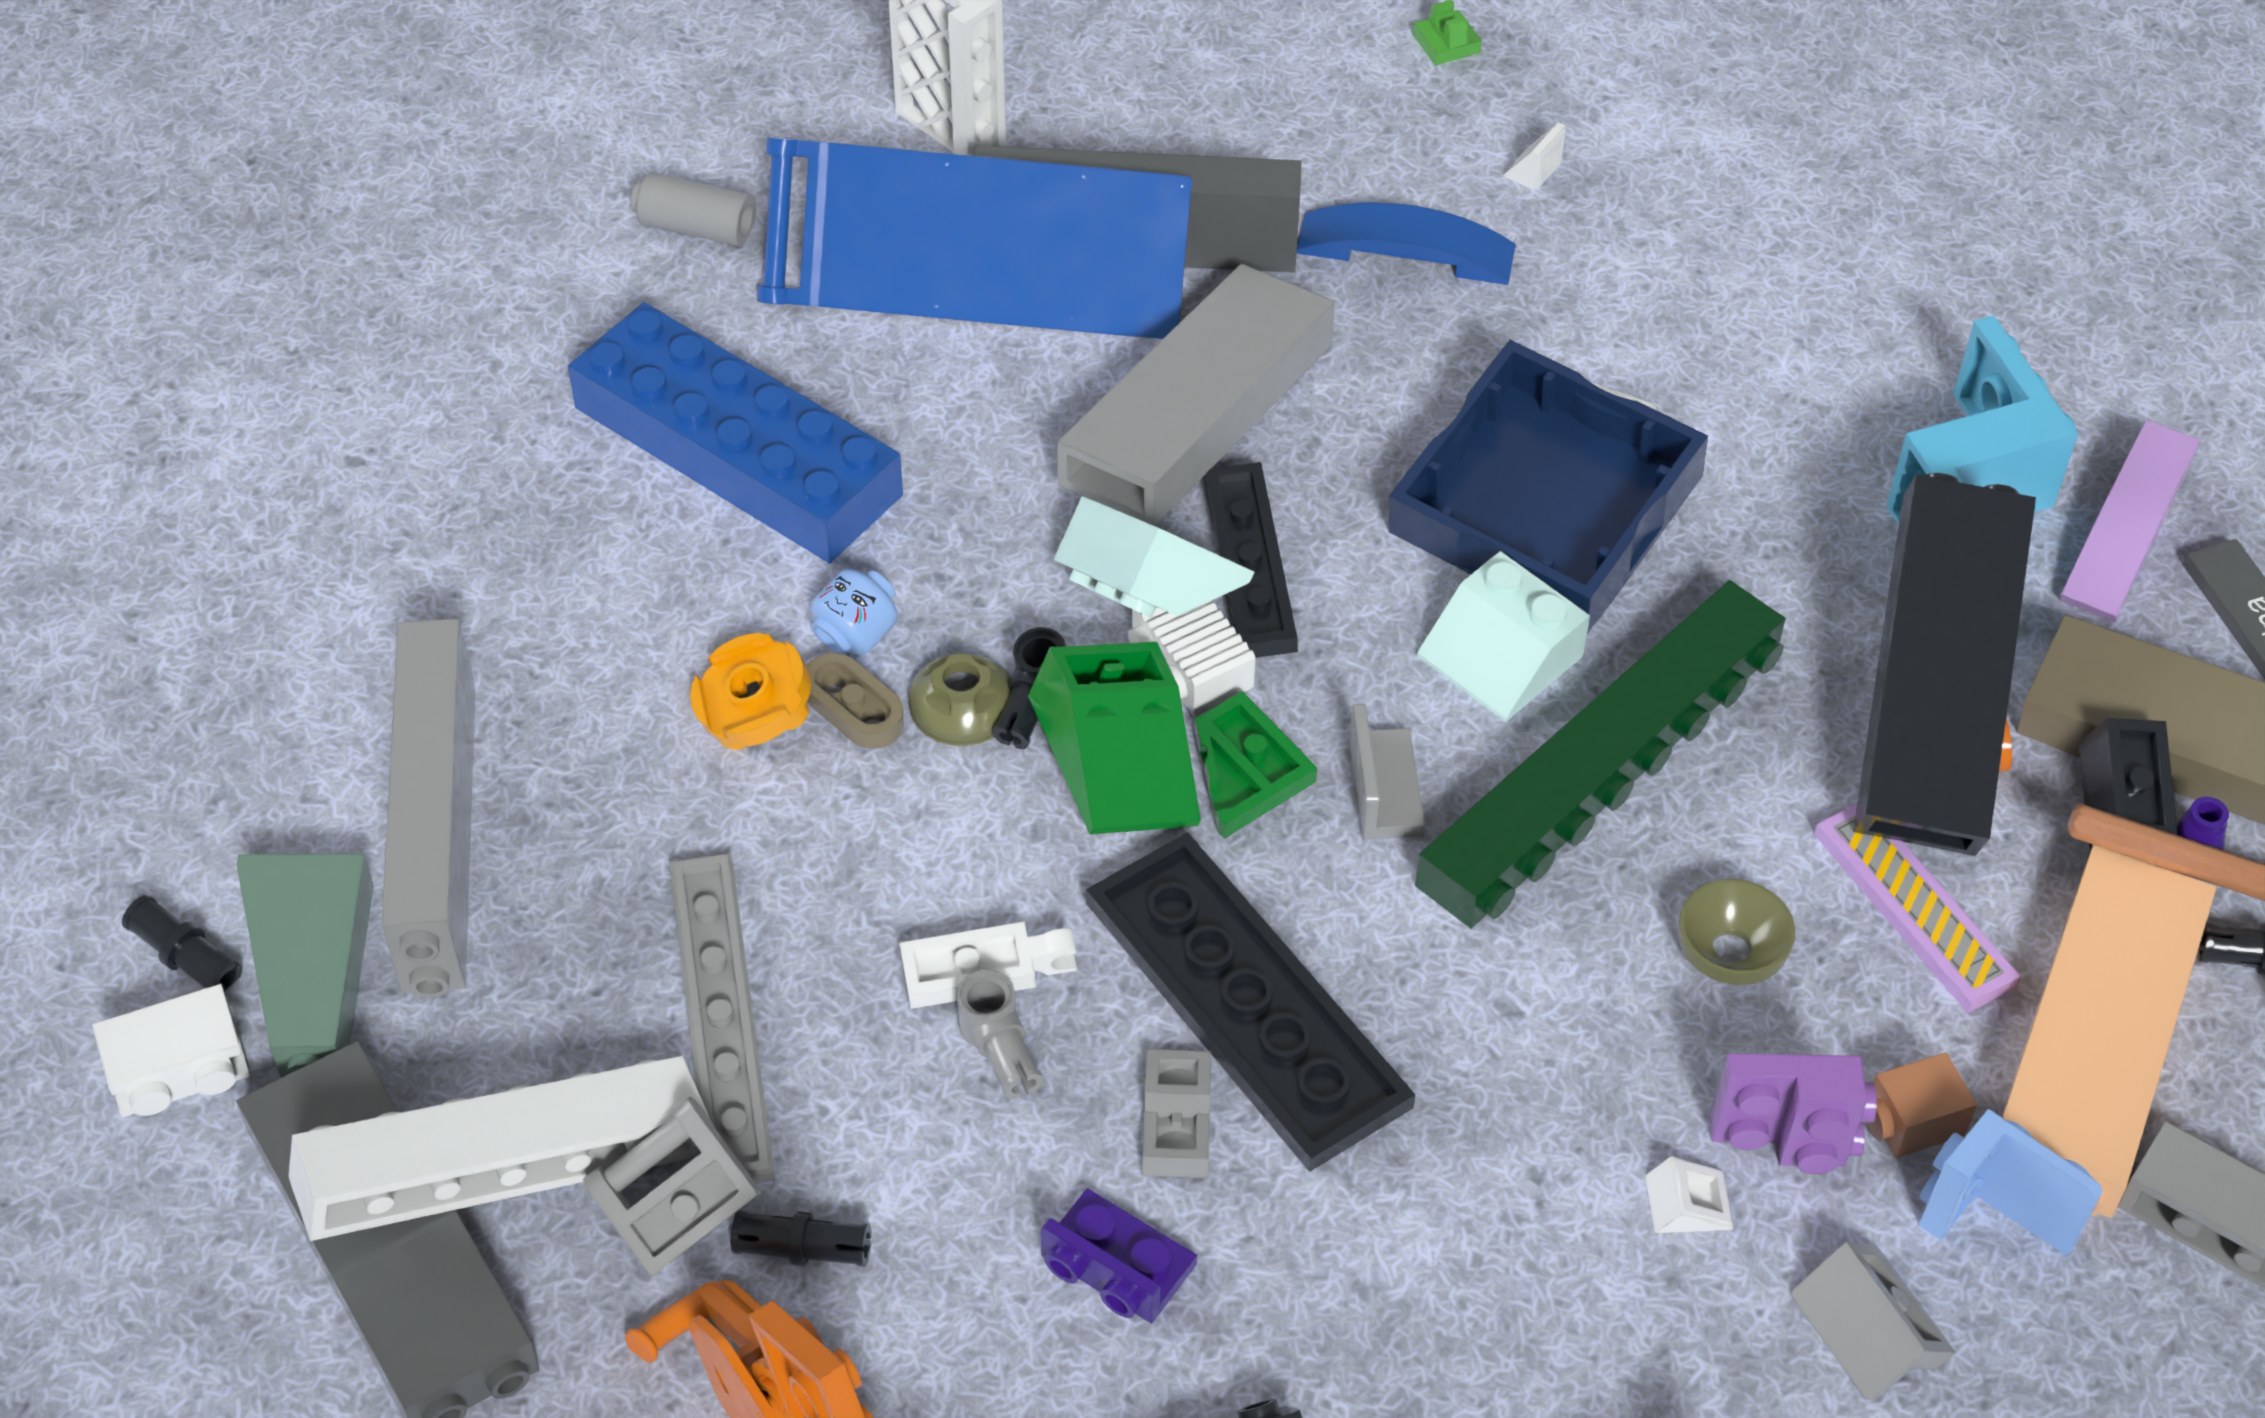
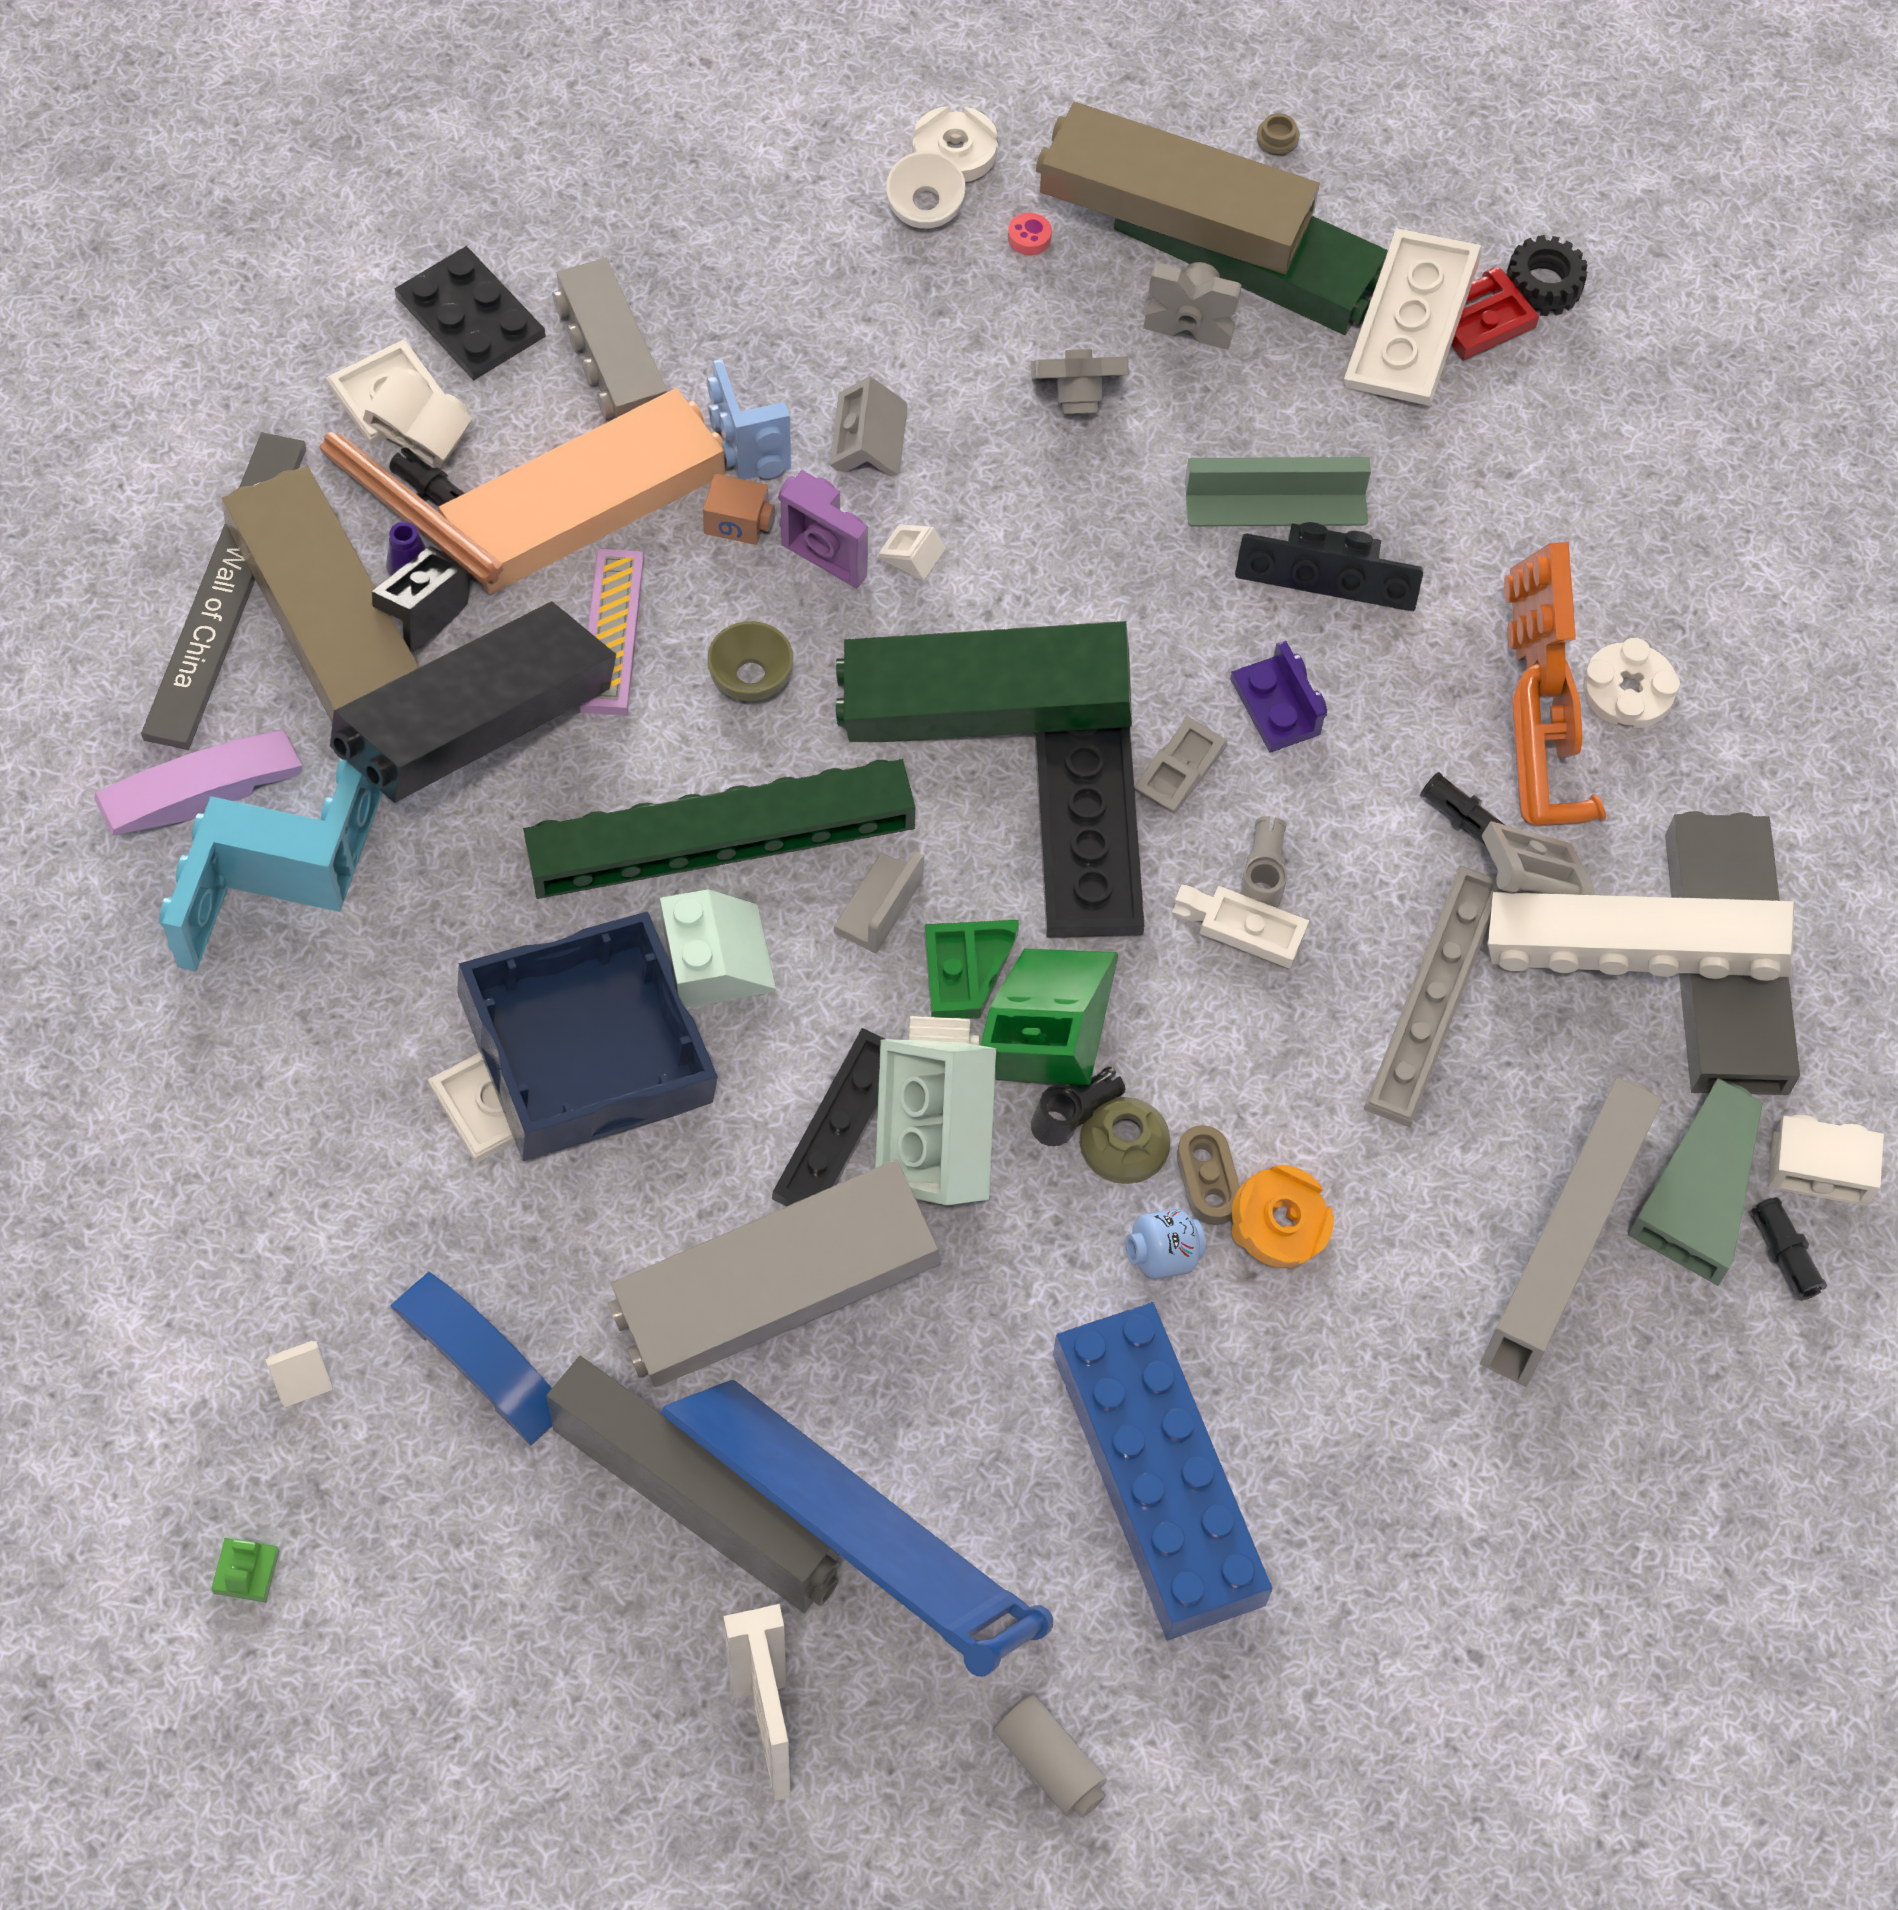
camera: 150 degrees left, 10 degrees up
(1453, 1042) = (985, 682): none -> dark green brick

